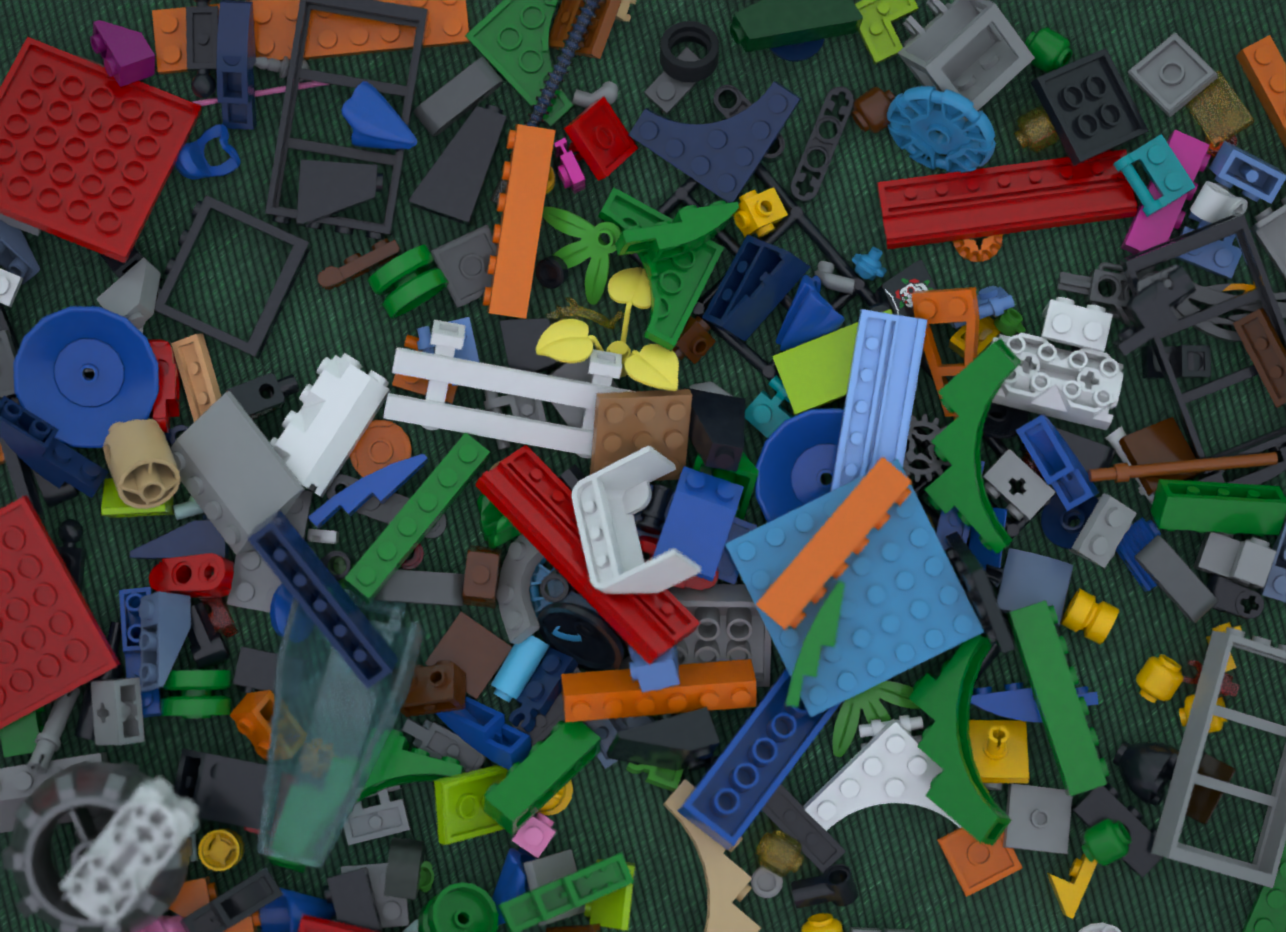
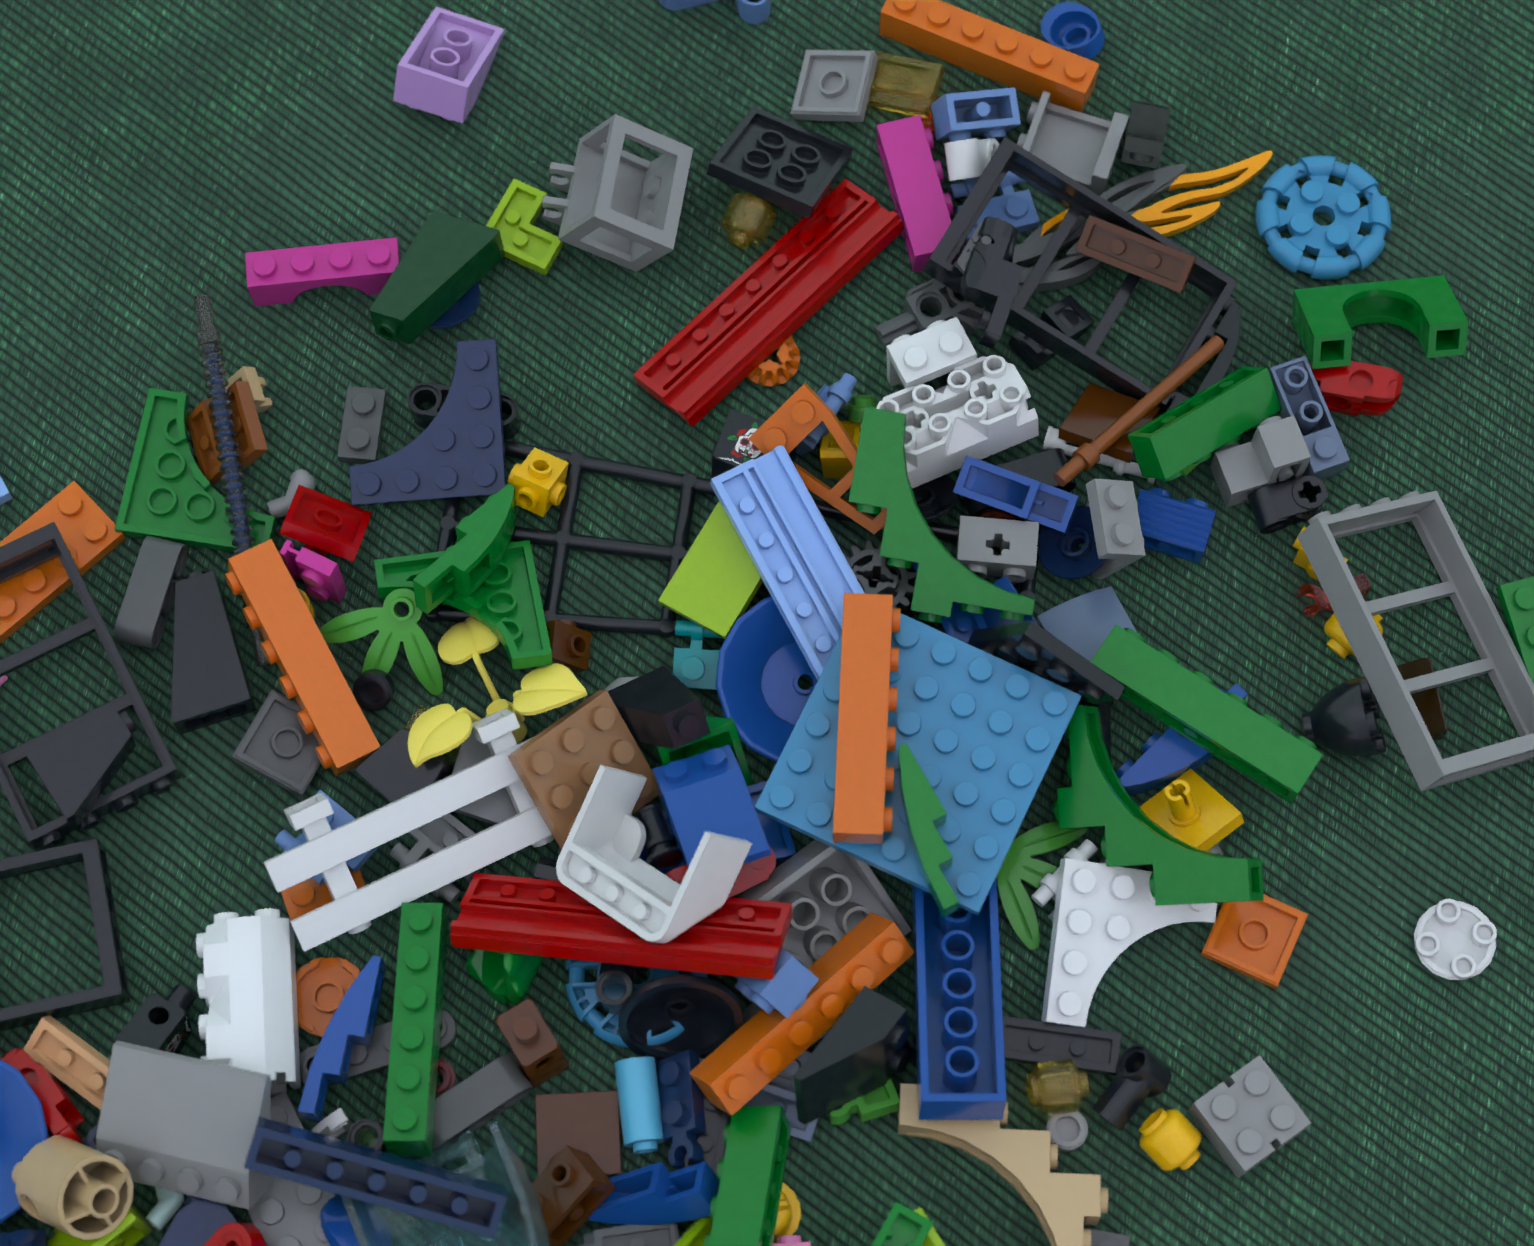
camera: 35 degrees left, 15 degrees down
(359, 265) = (167, 827): reddish brown hinge -> none
(375, 121) = (79, 664): blue hat -> none
(408, 281) = (229, 800): green wheel -> none
(514, 592) = (570, 1023): light grey plate -> none
(589, 314) = (453, 698): clear yellow piece -> none
(689, 32) = (364, 399): black tyre -> none
(753, 287) = (588, 548): dark blue wedge -> none
(808, 316) = (664, 536): blue hat -> none
(818, 143) = (553, 381): black beam -> none
(833, 281) = (671, 491): light grey arm -> none
(869, 265) = (685, 455): dark azure plant -> none
(872, 109) = (578, 311): reddish brown head -> none
(916, 118) = (649, 258): dark azure plate -> none
(1038, 819) = (1288, 850): light grey plate -> none
(1049, 49) = (704, 138): green head -> none
(1071, 893) = (1374, 901): yellow slope -> none
(1089, 616) = (1169, 620): yellow wheel -> none
(1103, 804) = (1333, 791): black arch -> none
(1106, 842) = (1369, 816): green head -> none
(1159, 678) = (1284, 629): yellow head -> none
(1163, 170) = (895, 165): teal plate -> none
(1175, 579) = (1221, 516): dark grey beam -> none

